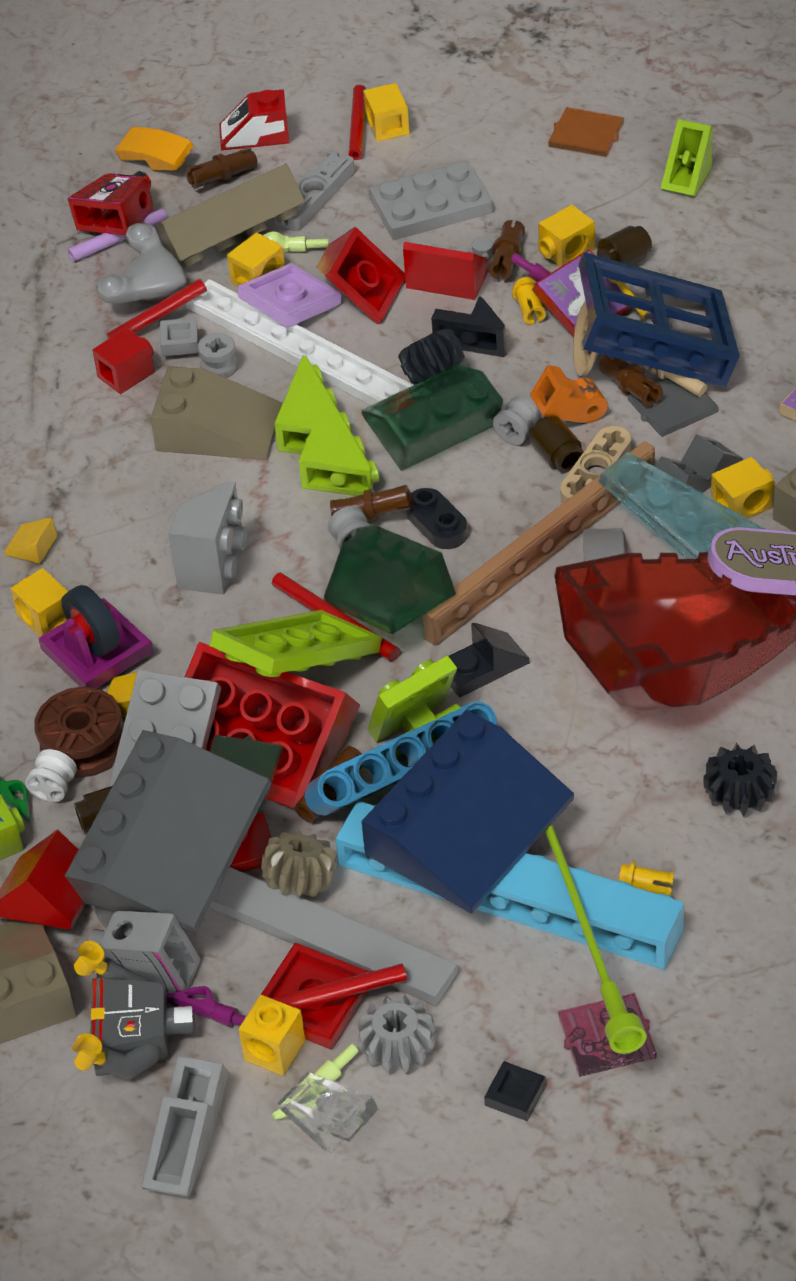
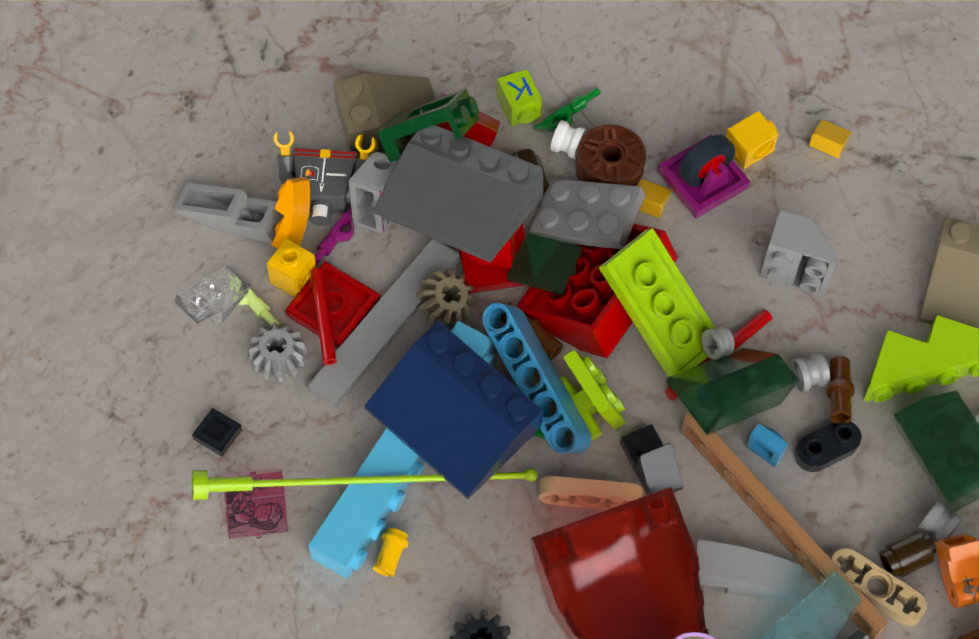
camera: 90 degrees right, 15 degrees up
(81, 903) = (456, 108): none -> dark green window
(185, 1028) = (295, 206): none -> light orange slope
(342, 604) = (718, 342): none -> light grey bush
(454, 553) = (767, 444): none -> dark azure plate
(536, 705) = (587, 492): none -> tan beam

